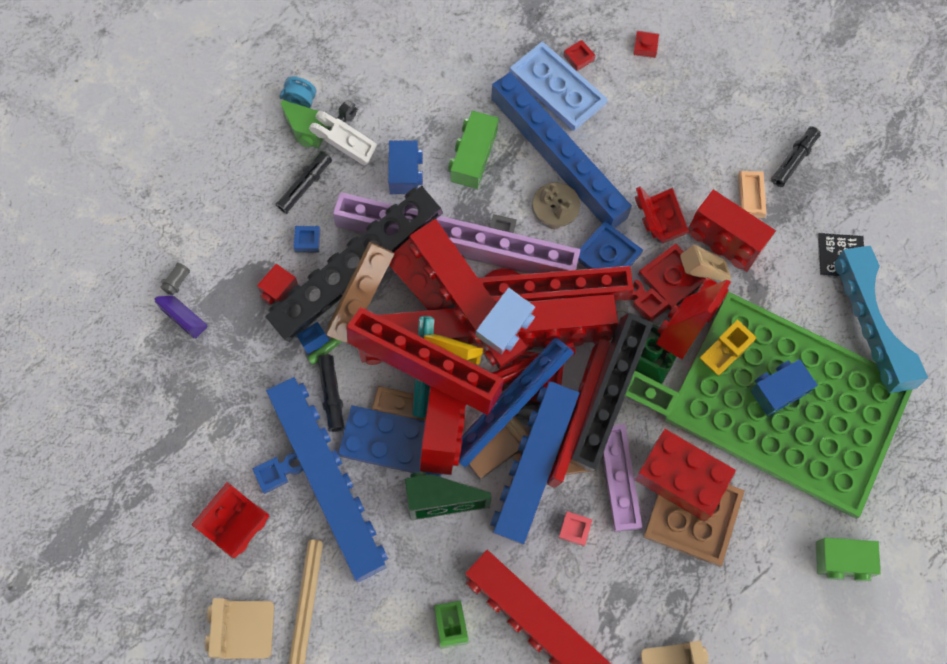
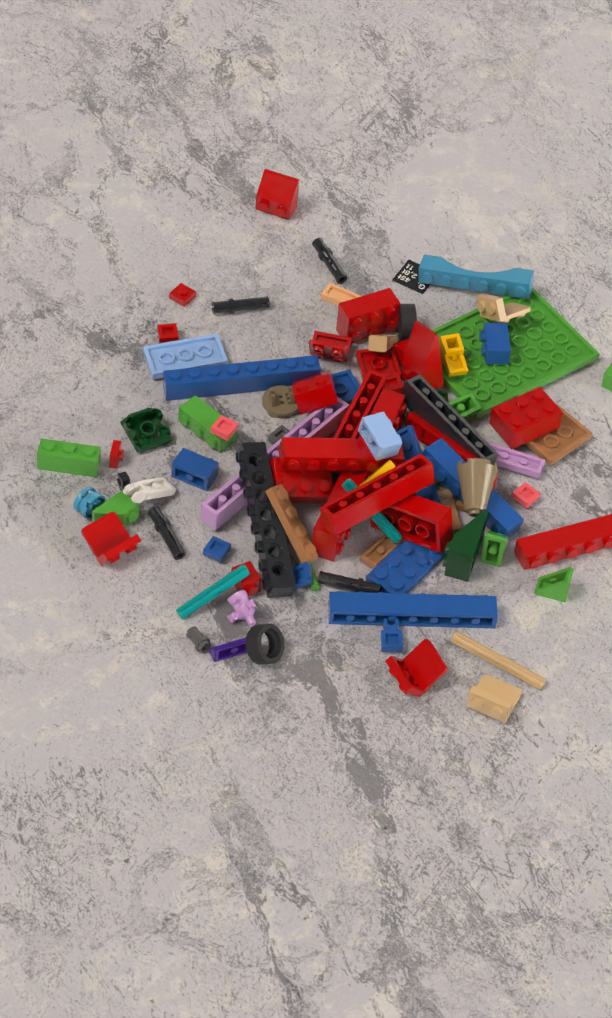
camera: 65 degrees left, 20 degrees down
(180, 360) = (254, 648): none -> black tyre
(237, 261) = (212, 591): none -> teal axle
(238, 302) = (243, 608): none -> lavender piece
(258, 134) = (109, 538): none -> red bracket
(349, 49) = (68, 457): none -> bright green brick
(380, 86) = (116, 454): none -> red plate
(432, 99) = (146, 429): none -> dark green slope
(461, 164) = (224, 428): none -> coral plate
(468, 528) = (494, 548): none -> bright green slope
(520, 465) = (476, 484): none -> dark tan cone
(571, 226) = (314, 392): none -> red slope
(670, 105) = (239, 305): none -> black pin
(752, 275) = (406, 320): none -> black tyre
(837, 374) = (495, 310): none -> tan bracket
(848, 59) = (277, 194): none -> red slope

